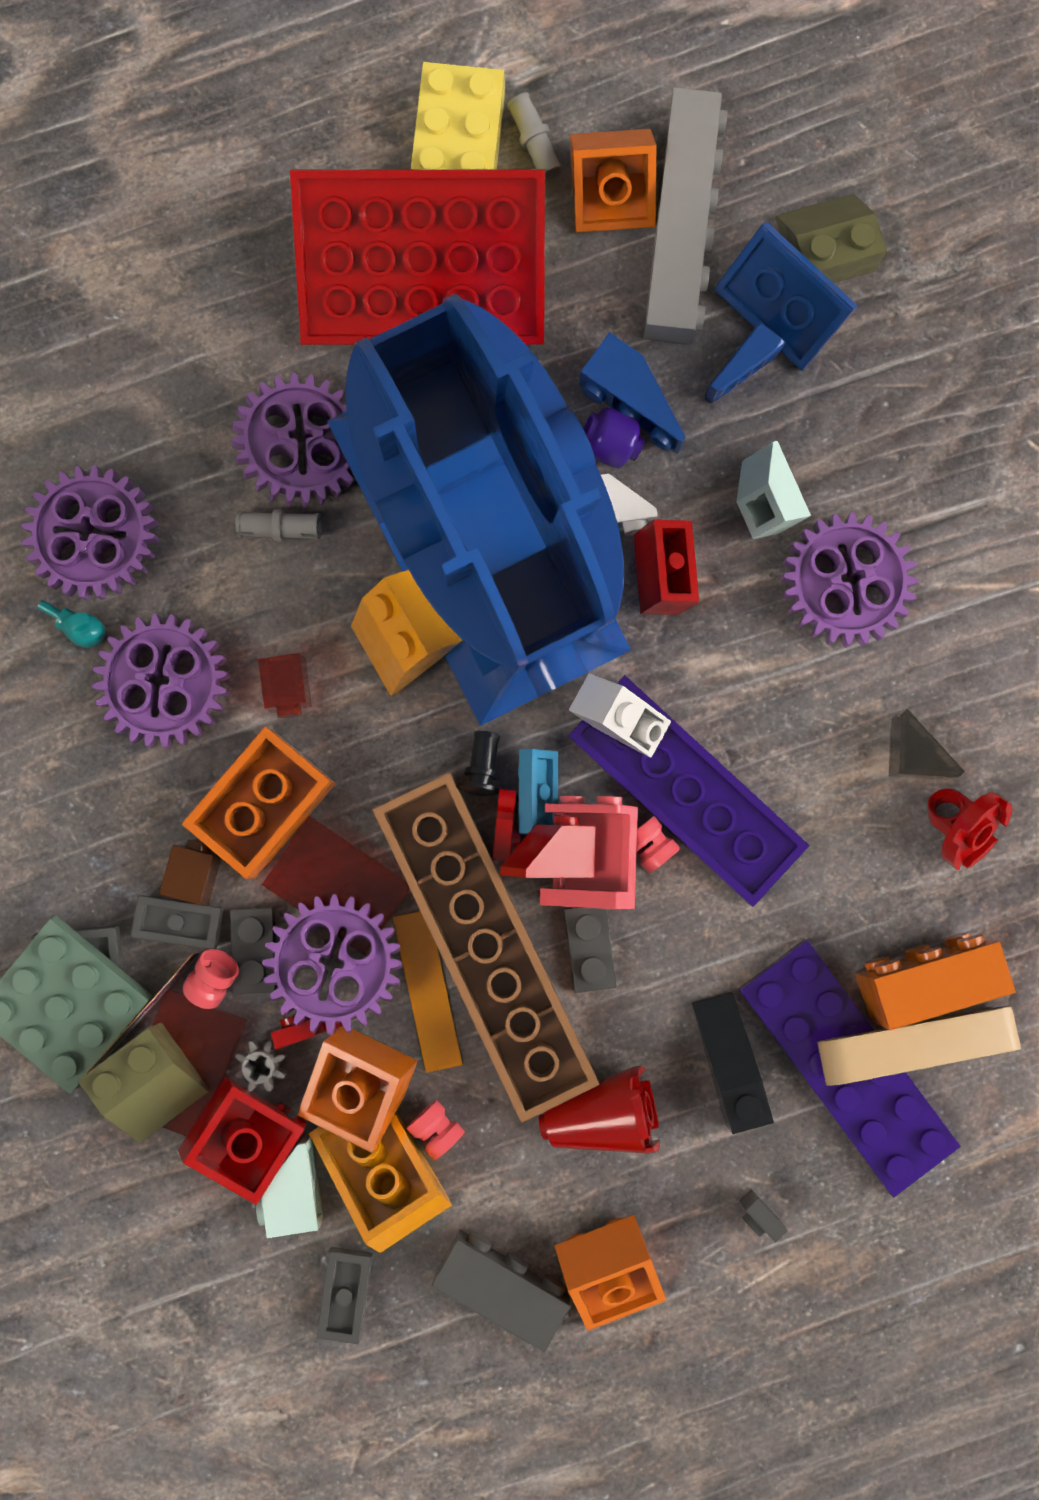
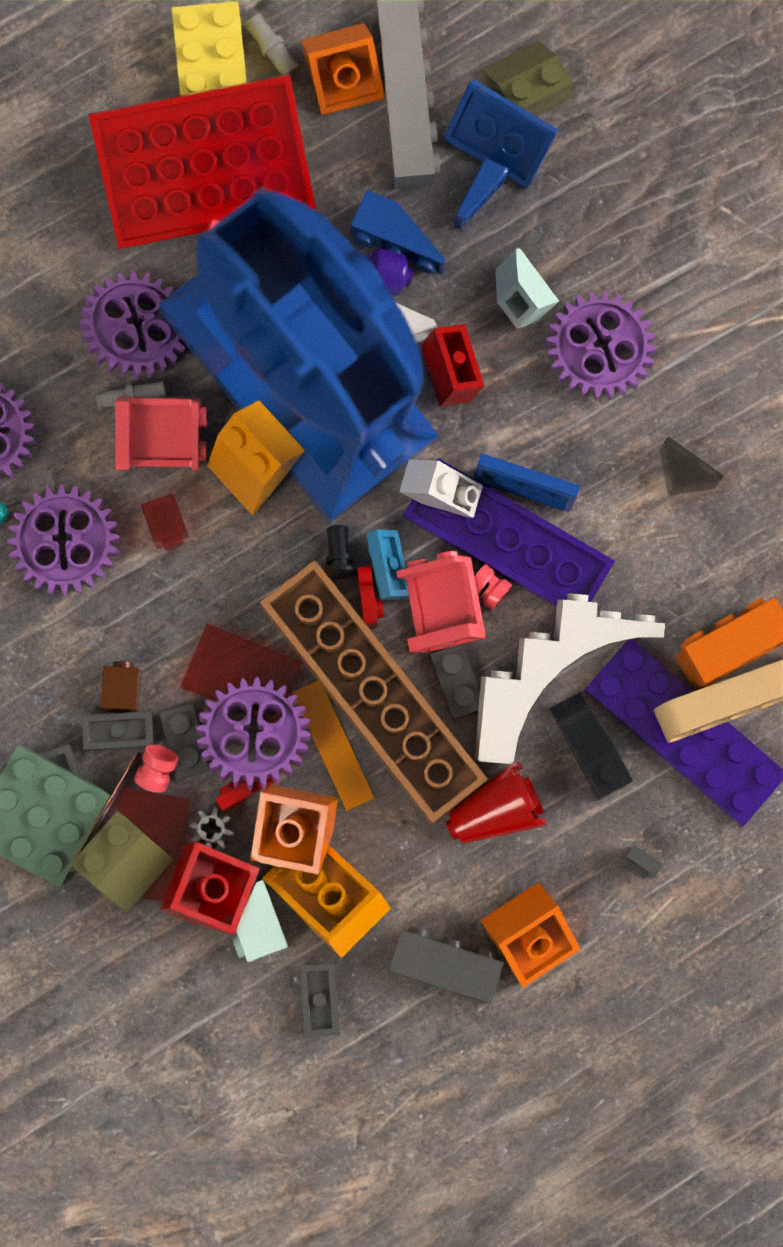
camera: 20 degrees left, 5 degrees down
(258, 803) = (166, 619): orange brick -> none
(299, 575) = (159, 432): none -> coral panel
(435, 1130) = (356, 847): coral wheel -> none
(554, 851) = (412, 605): slope -> none
(694, 949) = (577, 631): none -> white arch
(724, 730) = (526, 483): none -> blue tile
(972, 828) = (741, 519): red tile -> none

